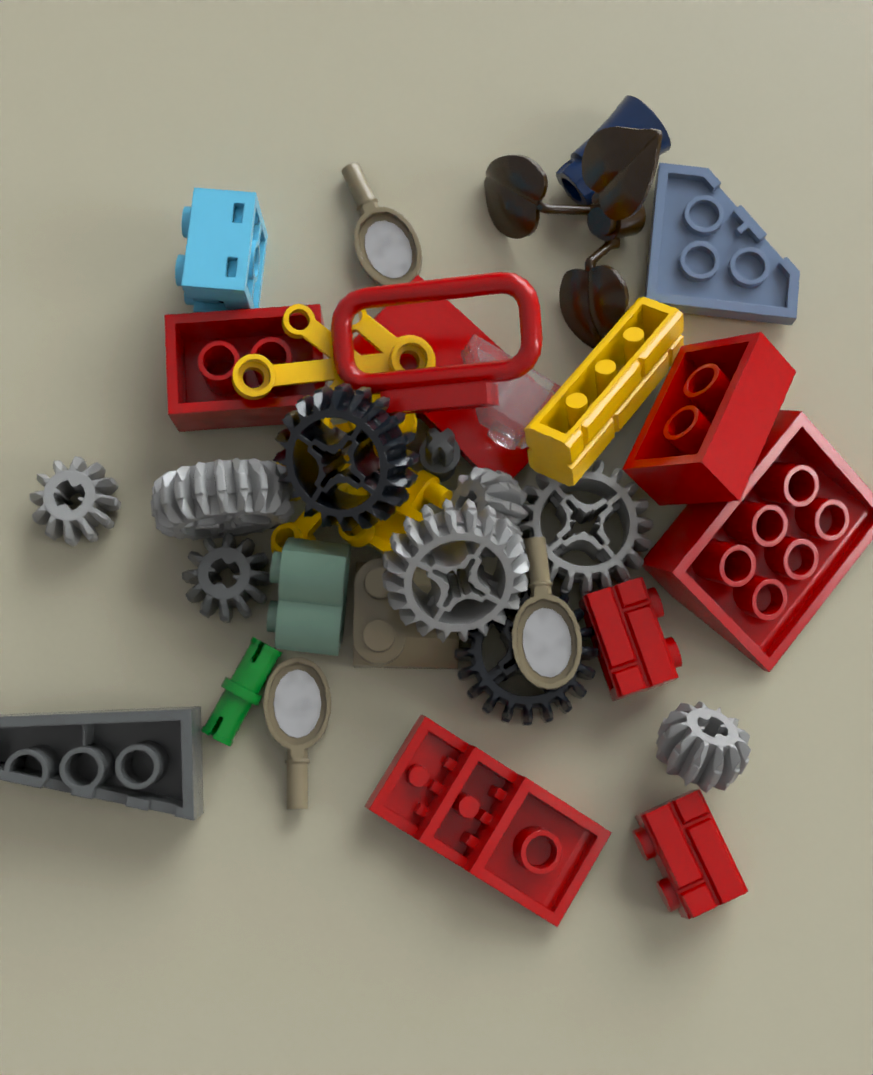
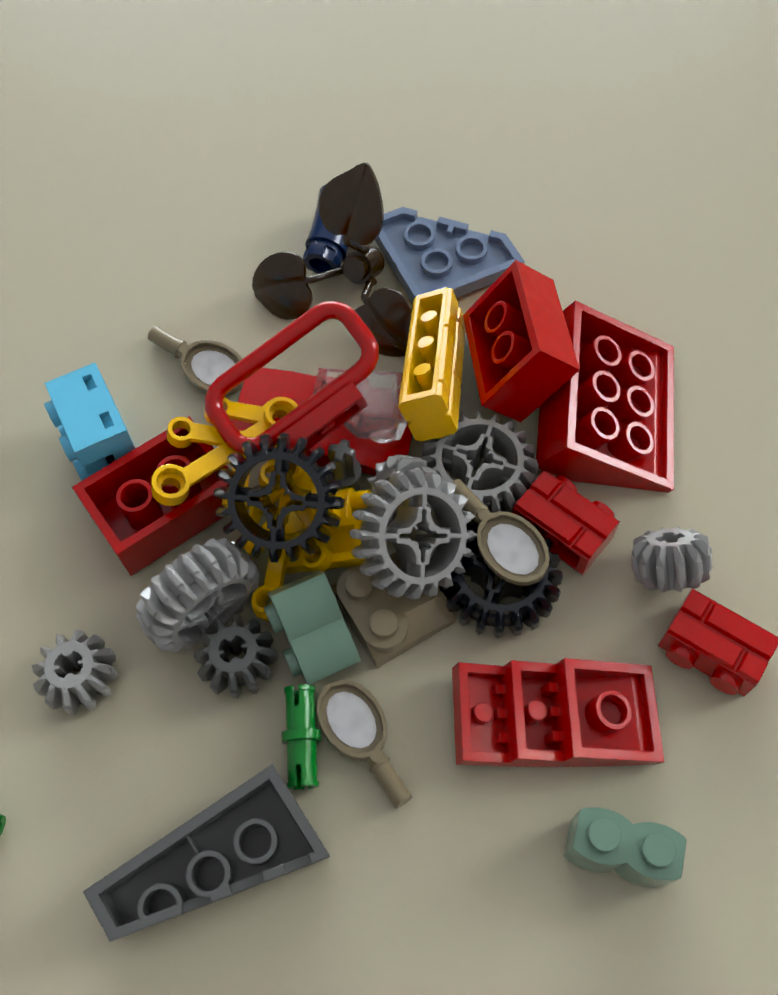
camera: 30 degrees left, 15 degrees down
(472, 989) = (639, 852): none -> sand green brick

